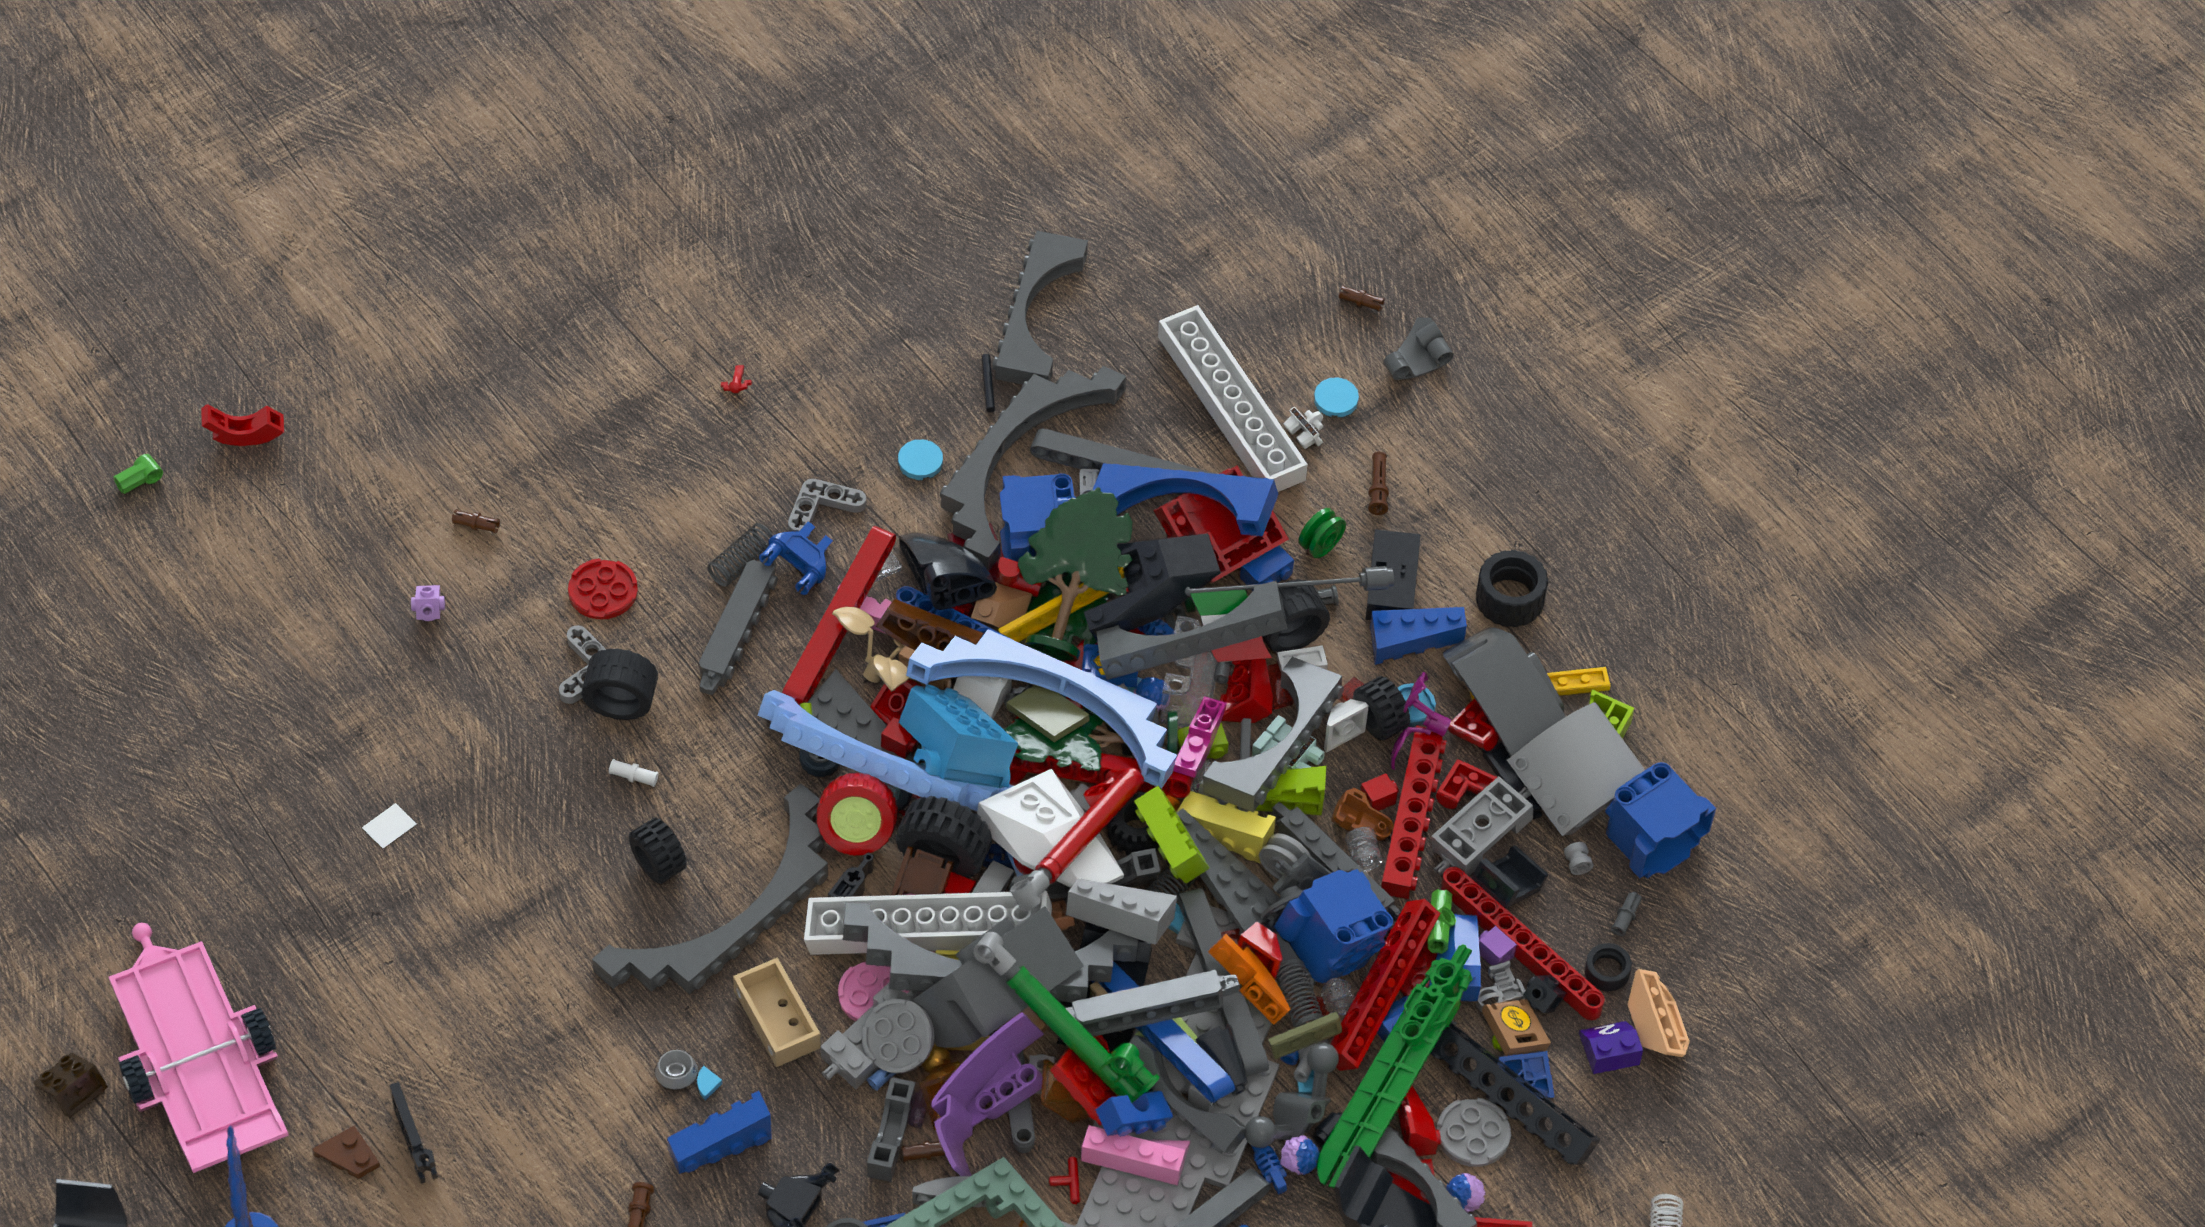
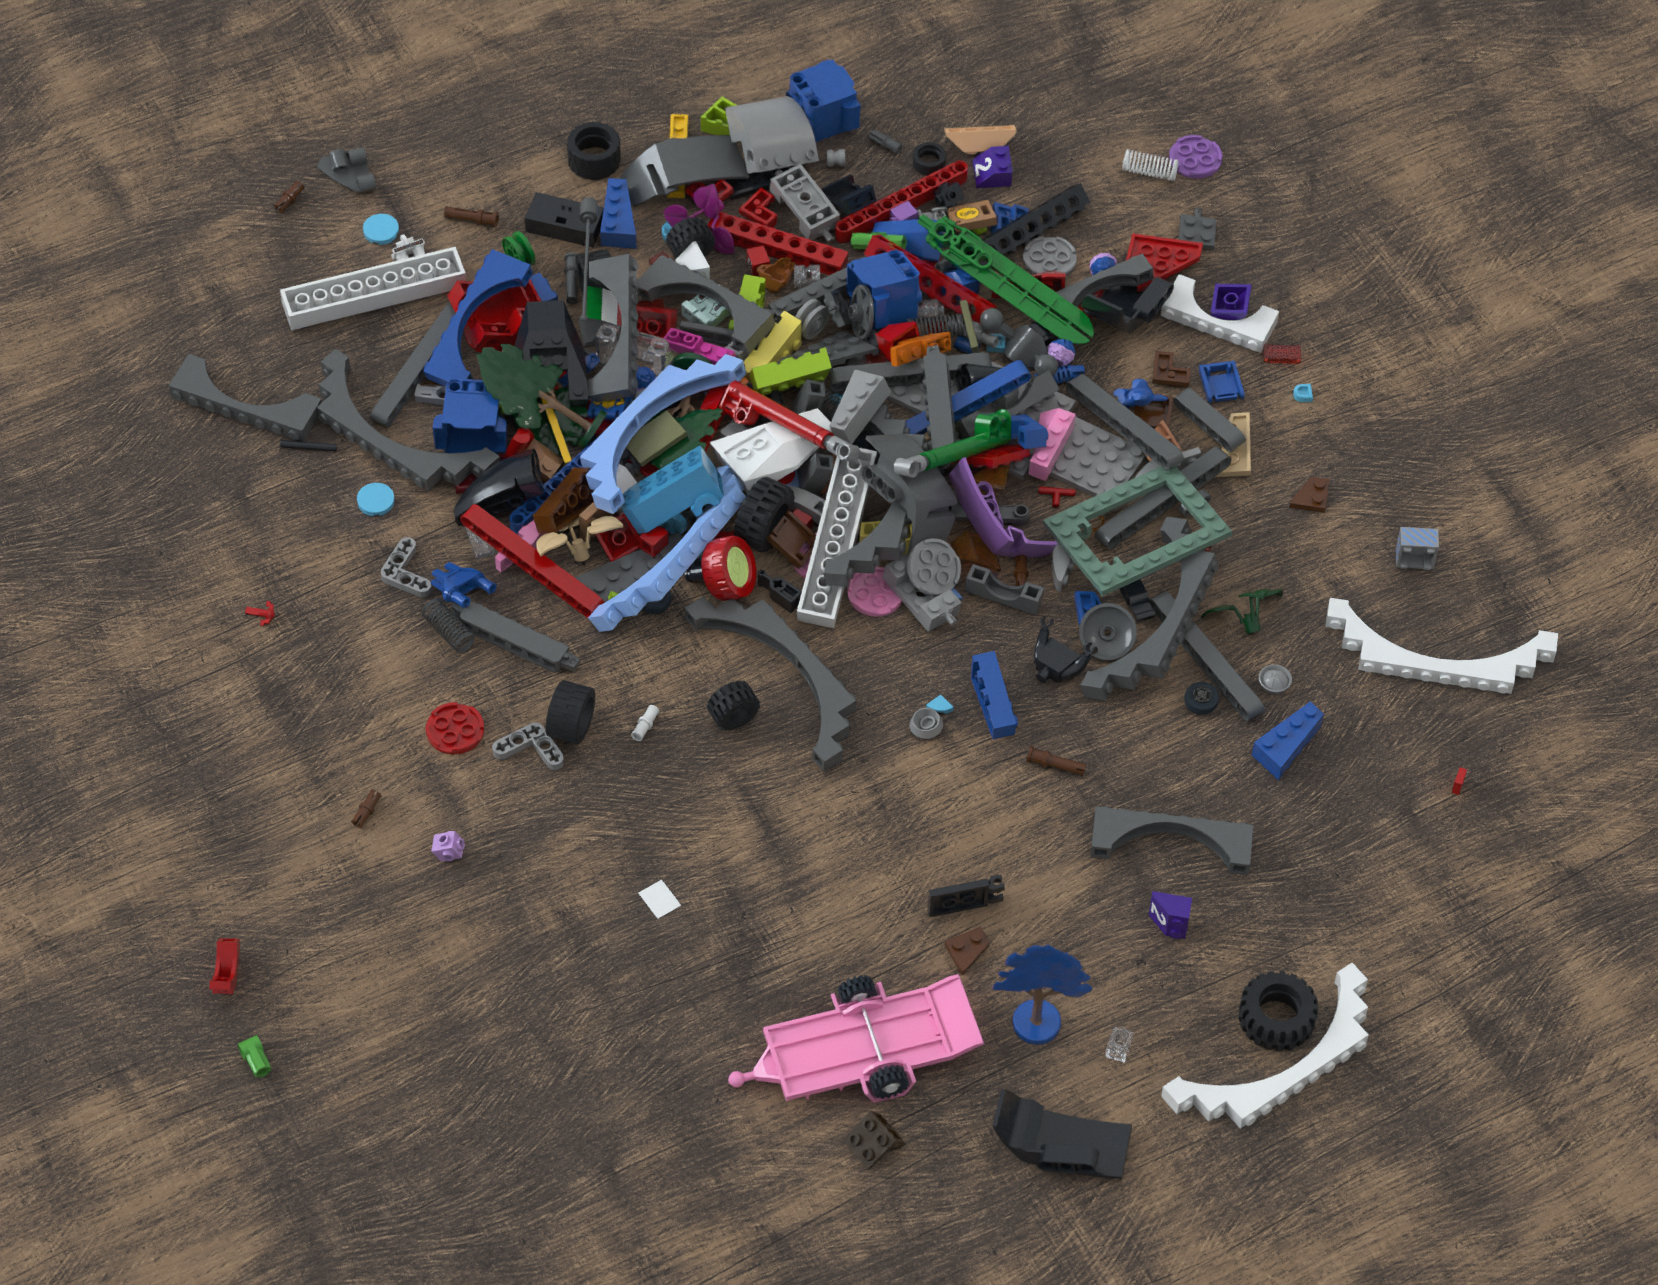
camera: 80 degrees left, 0 degrees up
(760, 995) = (913, 649): tan piece -> none

